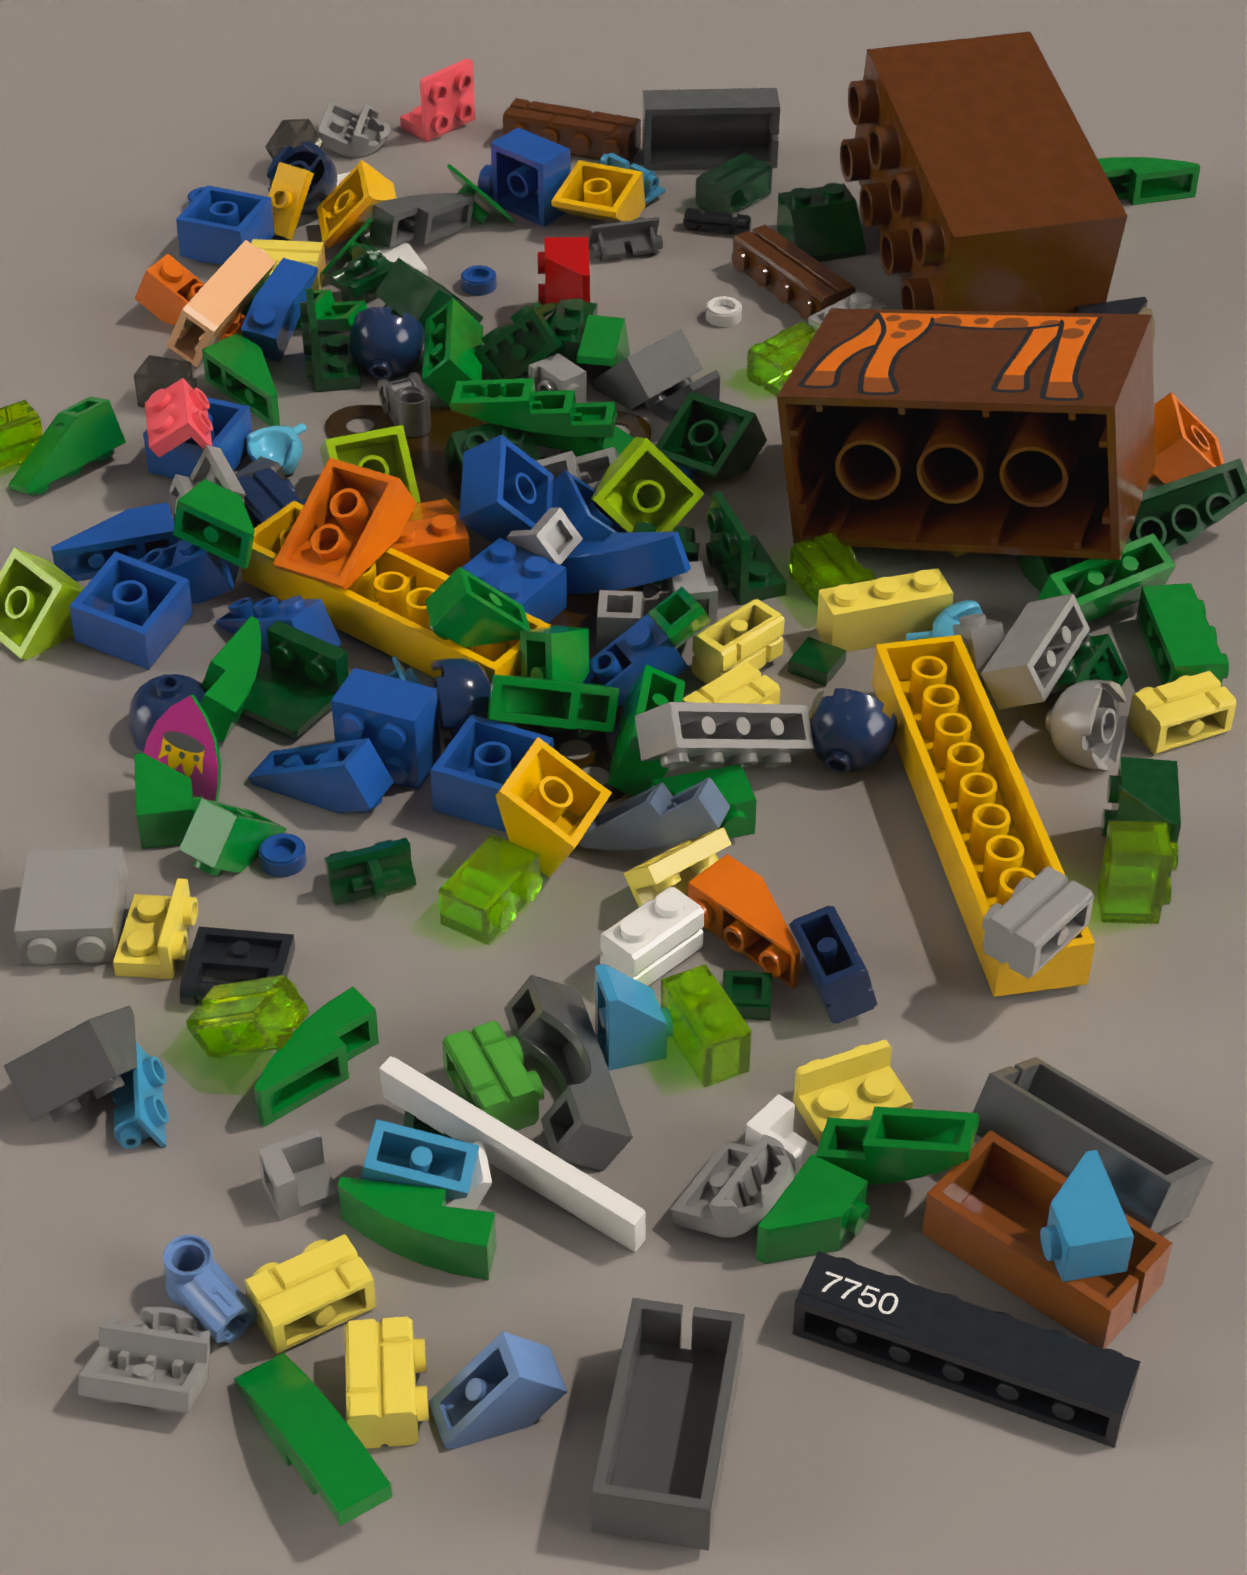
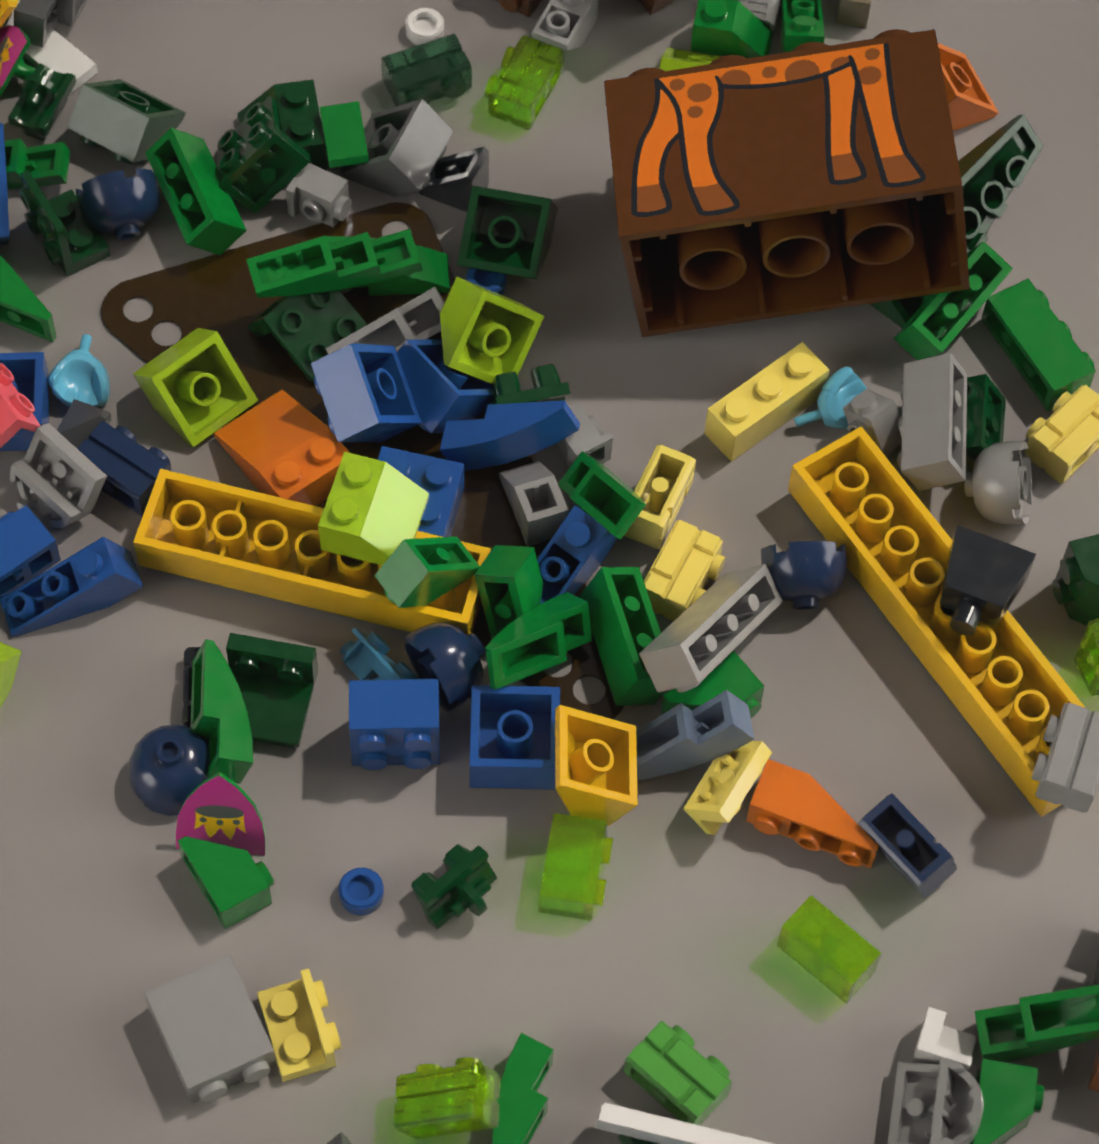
camera: 25 degrees left, 20 degrees up
(131, 610) = (67, 657): blue brick -> none
(215, 522) = (118, 539): green slope -> none
(226, 836) = (310, 895): green slope -> none
(233, 955) = (391, 1025): black plate -> none
(300, 613) = (211, 616): blue slope -> none
(328, 775) = (355, 790): blue slope -> none
(345, 524) = (242, 503): orange slope -> none
(406, 404) = (175, 270): flat silver piece -> none
(444, 544) = (370, 510): none -> lime slope
(478, 280) = (153, 60): blue tile -> none
(550, 537) = (434, 435): light grey panel -> none
(554, 1026) = (710, 1005): dark grey arch -> none
(565, 269) = (262, 49): red slope -> none
(629, 1020) = (767, 973): dark azure slope -> none
(654, 937) = (741, 873): white brick -> none
(711, 331) = (427, 71): none -> clear green brick
(740, 557) = (606, 378): dark green bracket -> none
(749, 993) = (840, 892): dark green tile -> none
(817, 661) = (726, 478): dark green tile -> none
(825, 565) = (696, 368): clear neon green brick -> none
(848, 1086) = (973, 970): light yellow bracket -> none
(1016, 762) = (982, 579): none -> black torso

